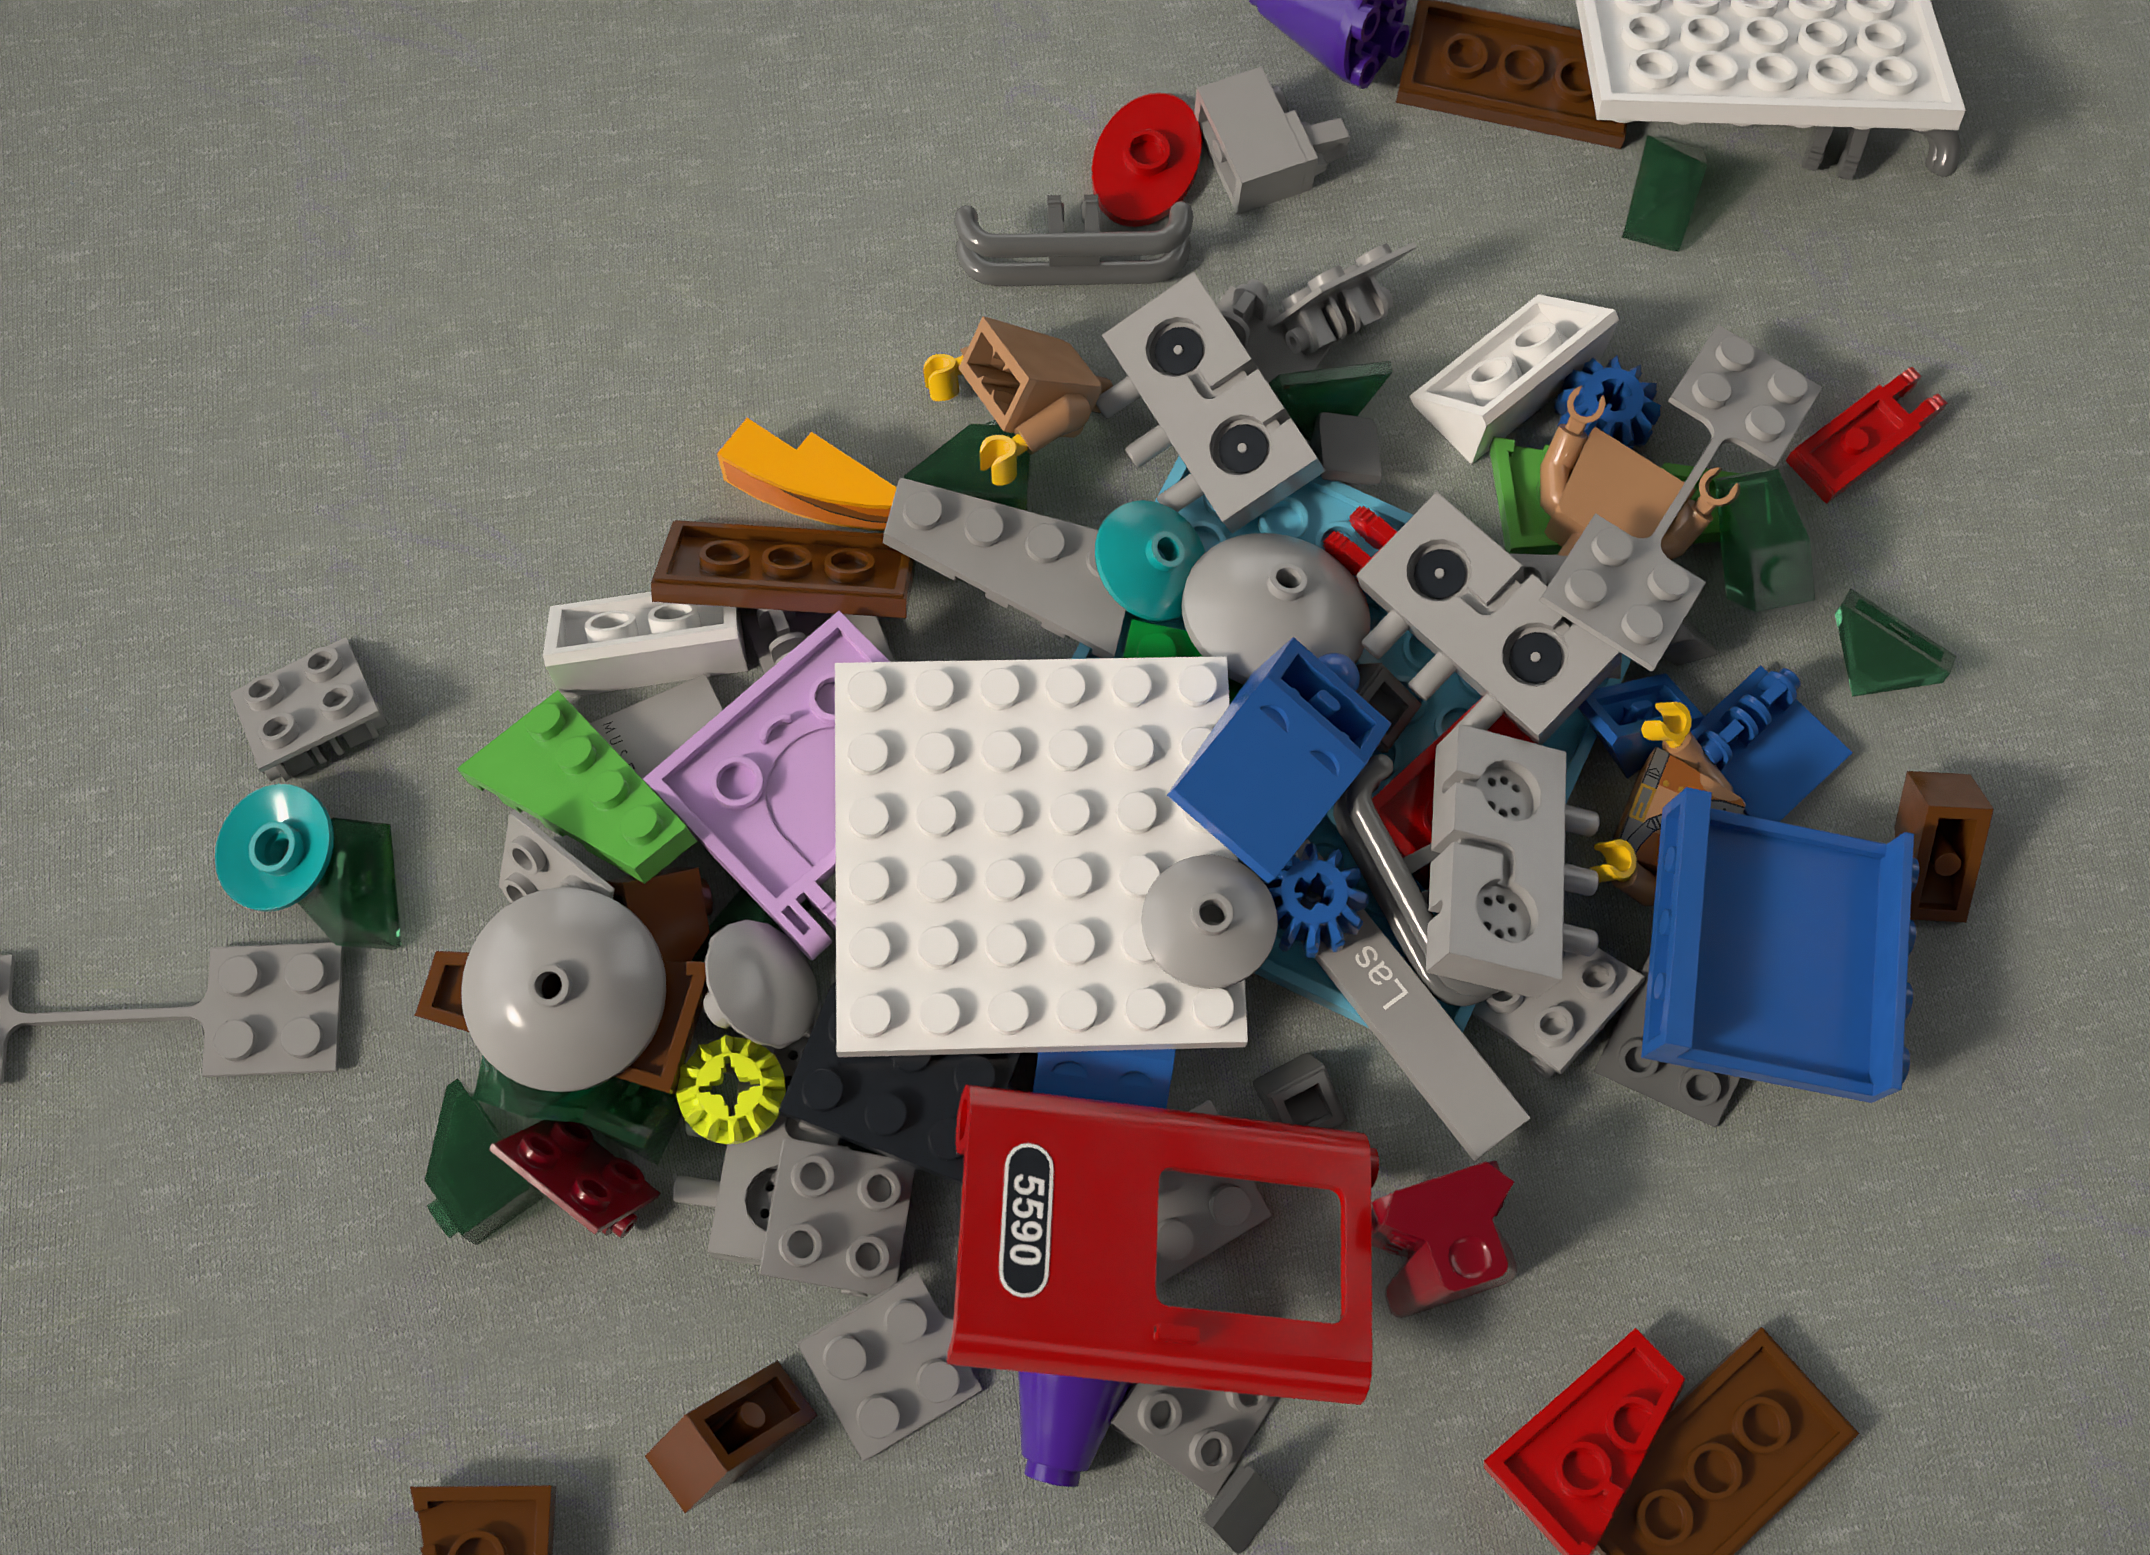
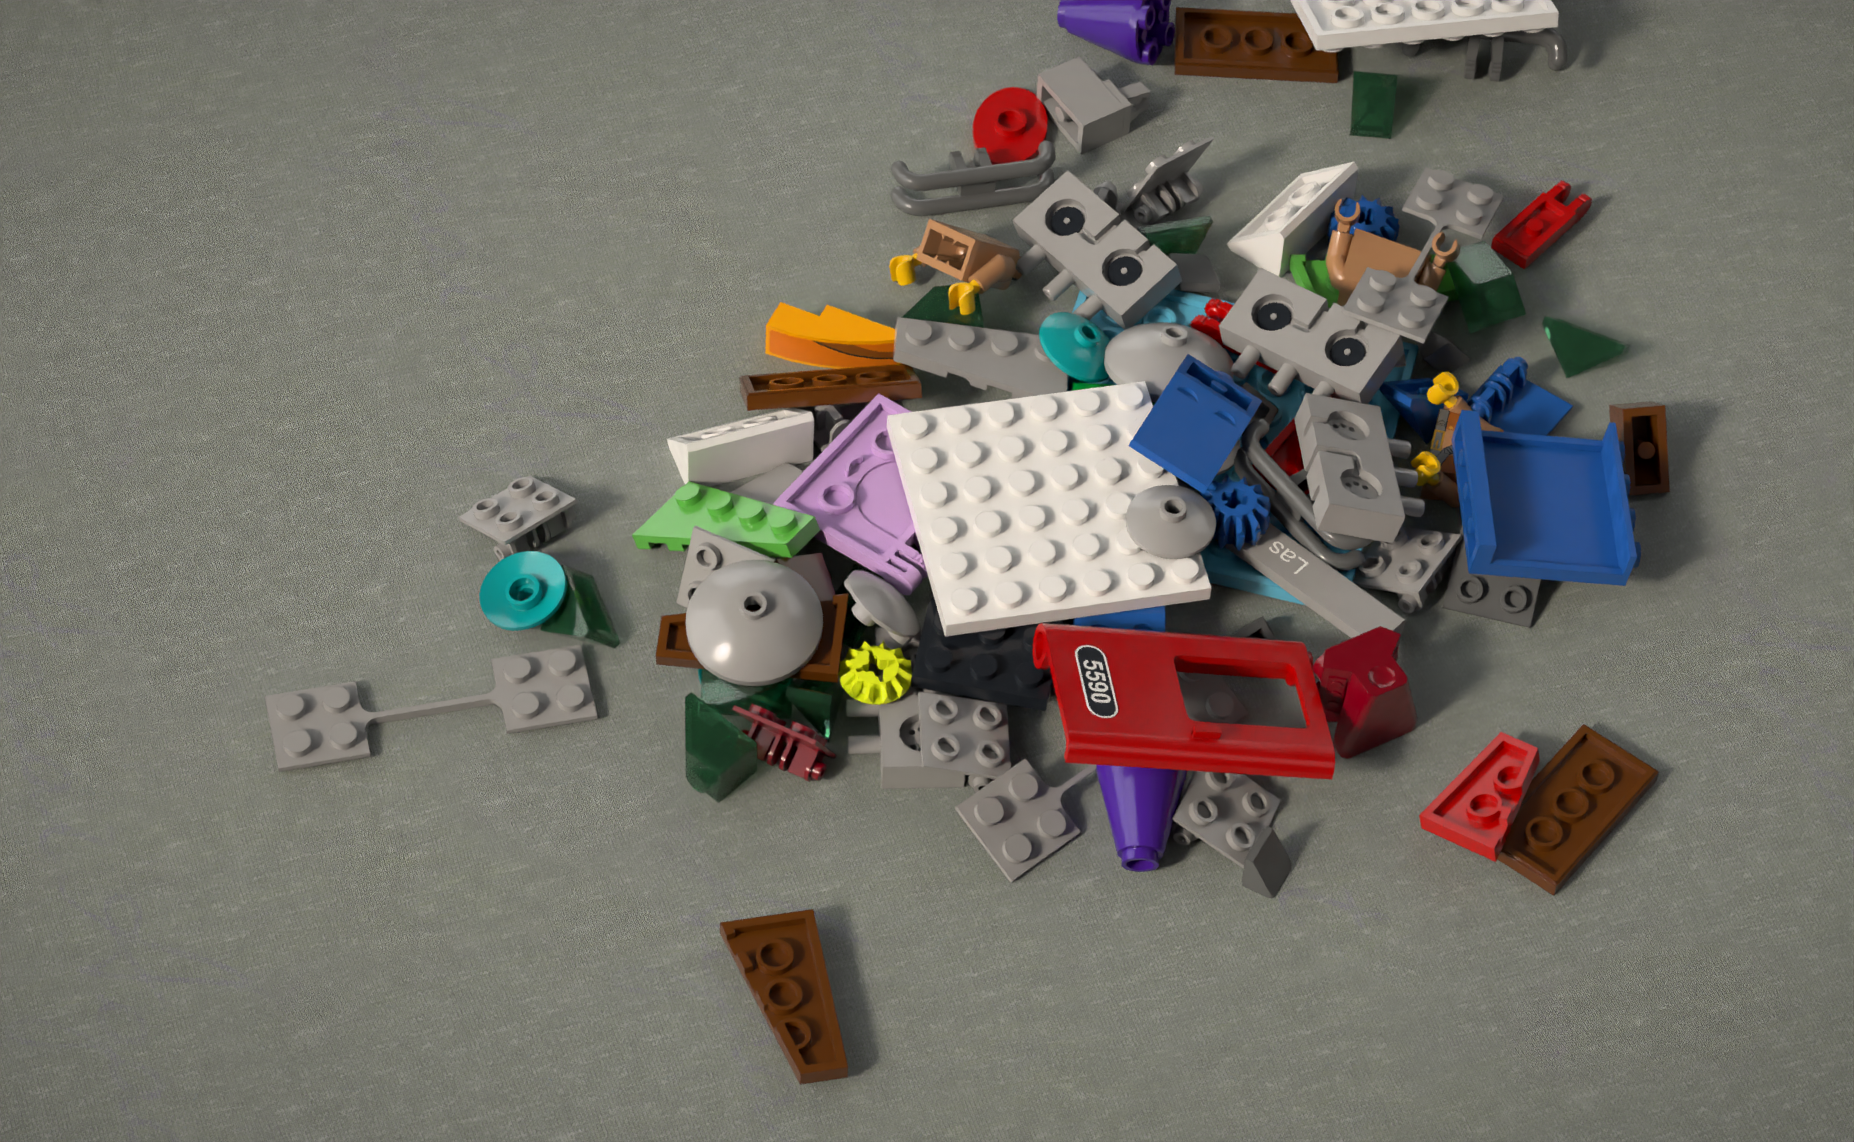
camera: 10 degrees left, 20 degrees down
(729, 1435) = (920, 870): reddish brown slope -> none

